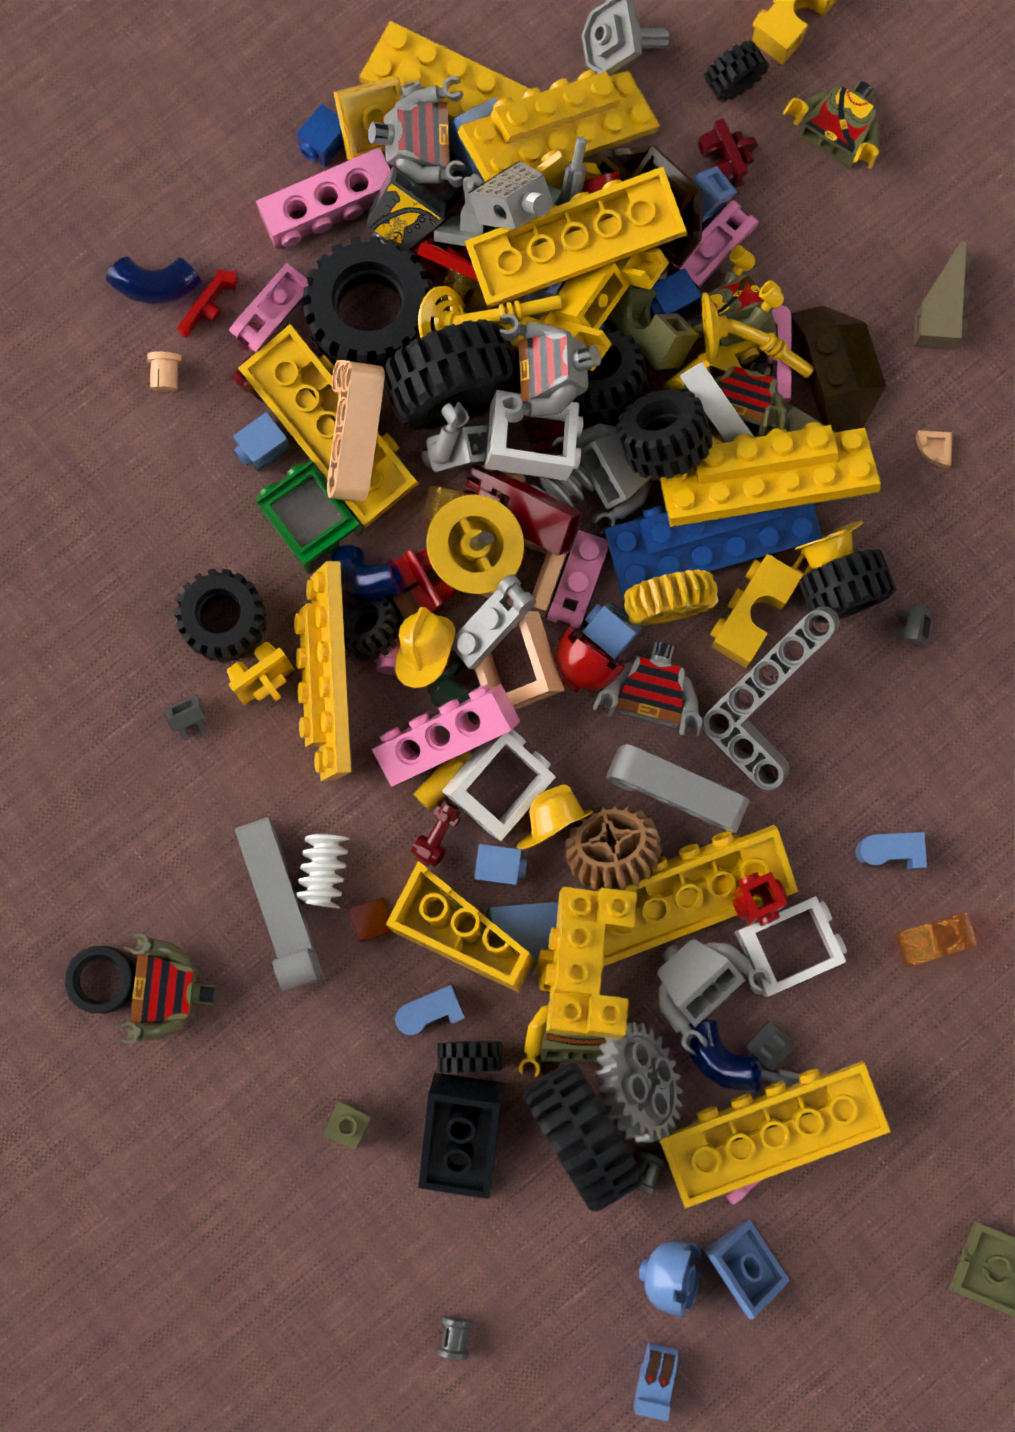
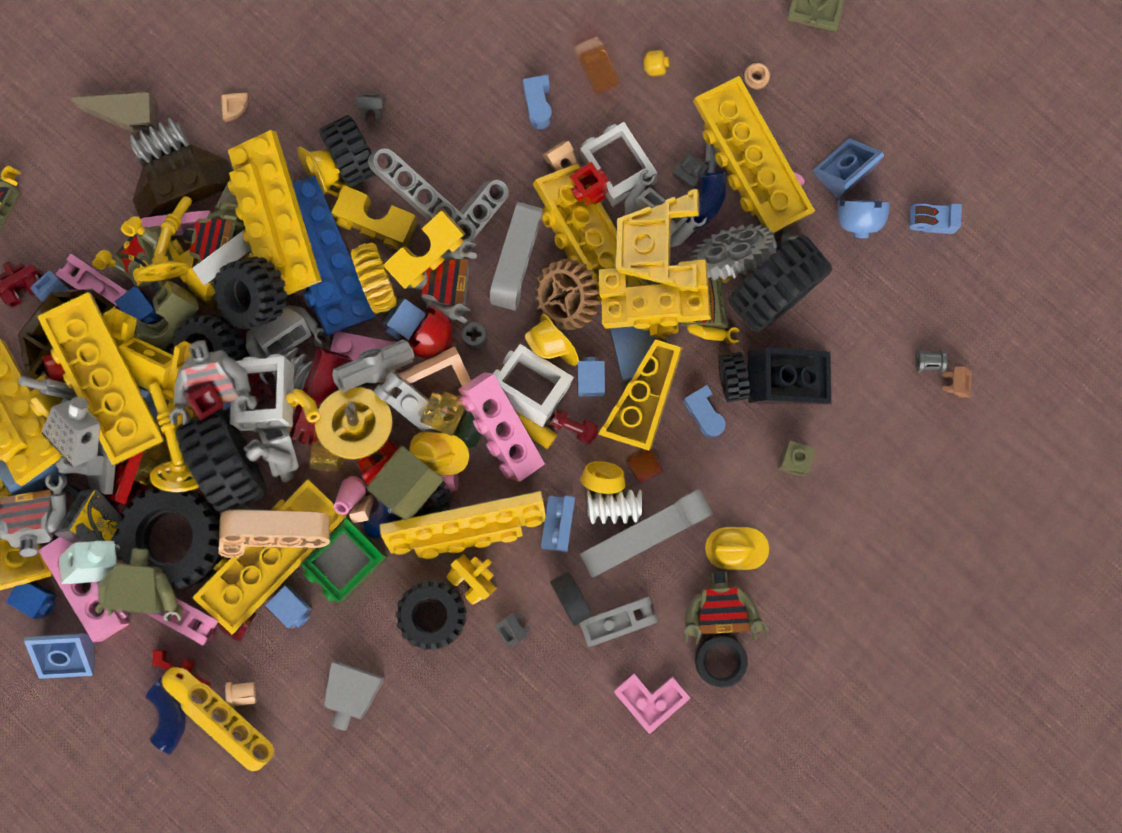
camera: 95 degrees left, 0 degrees up
(57, 879) = (651, 708): none -> bright pink plate
(143, 504) = (350, 693): none -> light grey torso
(173, 853) = (617, 622): none -> light grey plate
(176, 300) = (231, 720): none -> yellow piece
(210, 795) = (571, 598): none -> black tyre
(244, 1027) = (737, 548): none -> yellow piece
(249, 164) = (61, 655): none -> medium blue slope
(305, 258) = (138, 589): none -> olive torso
(312, 794) = (558, 523): none -> medium blue bracket
(350, 203) = (89, 561): none -> light aqua torso
(361, 860) = (603, 477): none -> yellow hat
(370, 545) = (362, 509): none -> light nougat piece
(385, 598) = (404, 483): none -> olive slope
(391, 532) = (349, 494): none -> bright pink cone
(419, 1375) = (961, 382): none -> nougat tile
(457, 664) = (449, 422): none -> clear yellow brick
(507, 490) = (307, 403): none -> yellow arm
(524, 357) = (203, 400): none -> dark red slope
(549, 579) = (373, 365): none -> light grey piece
(569, 712) = (468, 331): none -> dark grey bush
(661, 959) = (645, 243): none -> yellow wing
(713, 691) = (443, 235): none -> yellow arch
(815, 866) = (559, 152): none -> light nougat tile
(894, 346) = (159, 141): none -> light grey piece
(906, 1162) = (760, 70): none -> light nougat plate
(932, 1023) = (656, 63): none -> yellow piece

